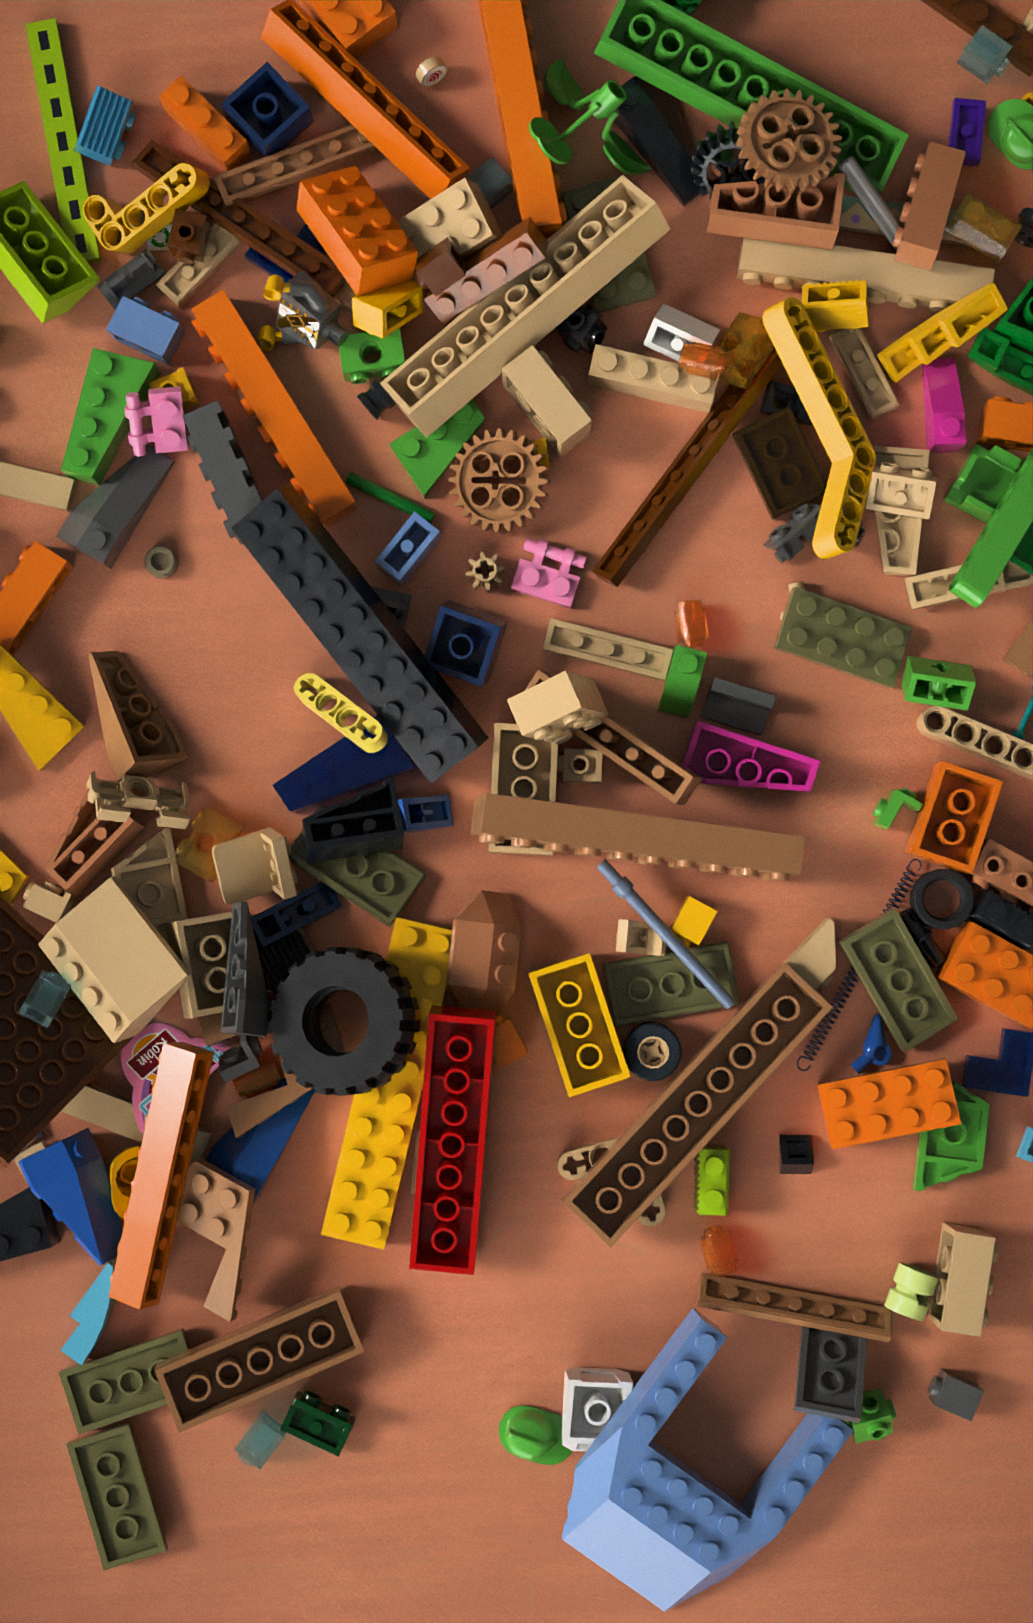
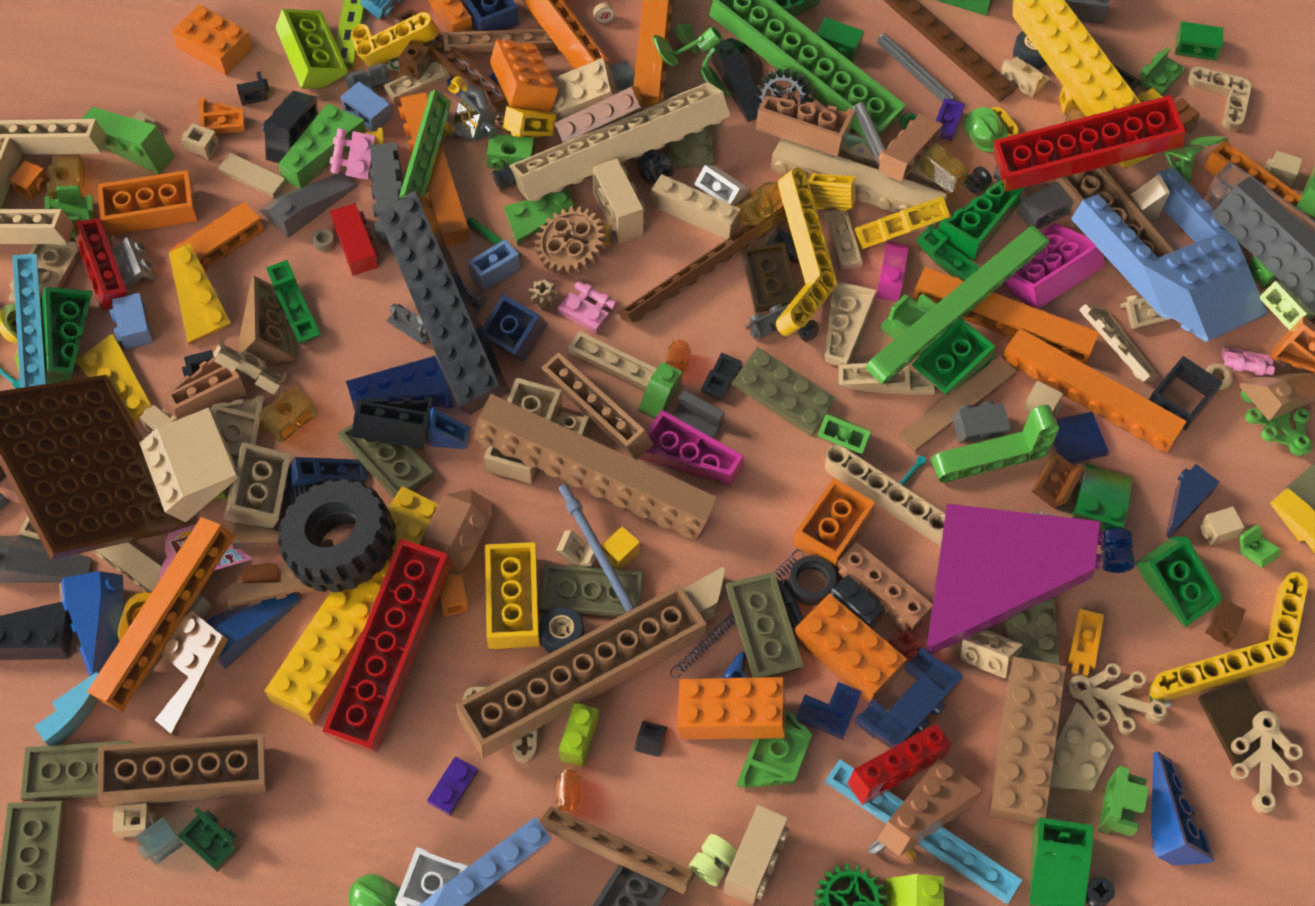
camera: 10 degrees right, 25 degrees down
(45, 998) = (128, 471): clear light blue brick -> none
(49, 392) = (288, 124): none -> black wedge
(62, 803) = (193, 361): none -> black bracket
(157, 676) = (292, 302): none -> green slope
(204, 553) = (355, 239): none -> red brick
(215, 1434) = (125, 817): none -> tan brick
(241, 1059) = (251, 557): dark grey bracket -> none
(245, 990) = (275, 498): dark grey wedge -> none
(254, 866) = (312, 431): tan bracket -> none
(258, 392) = (426, 144): none -> bright green plate
(315, 659) = (407, 323): none -> dark grey hinge
(340, 712) = (411, 348): light yellow beam -> none
(440, 267) = (570, 102): reddish brown brick -> none
(558, 707) = (561, 360): tan brick -> none
(578, 1277) = (452, 786): none -> dark purple plate
(702, 360) = (730, 194): clear orange brick -> none
(754, 633) = (722, 376): none -> black slope
(782, 31) = (841, 37): none -> green brick
(788, 141) = (821, 82): medium nougat gear -> none
(887, 809) = (787, 509): bright green bracket -> none
(900, 51) = (914, 68): none -> dark grey axle
(901, 490) = (848, 307): tan bracket -> none
(915, 146) = (911, 116): none -> green hinge
(985, 55) = (970, 80): clear light blue brick -> none

